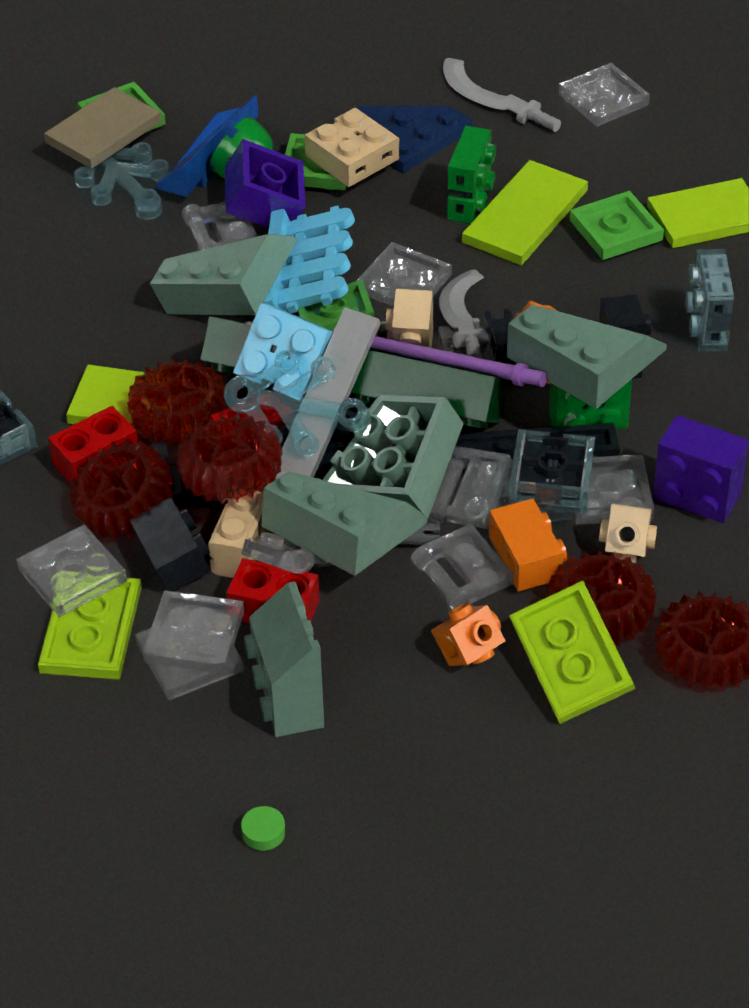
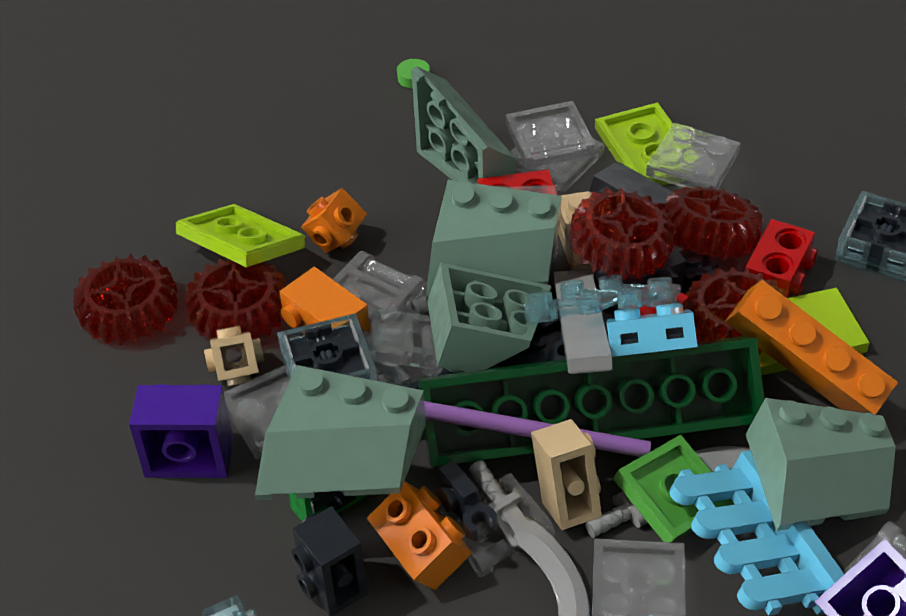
camera: 155 degrees right, 0 degrees up
(164, 326) = (811, 350): none -> orange brick

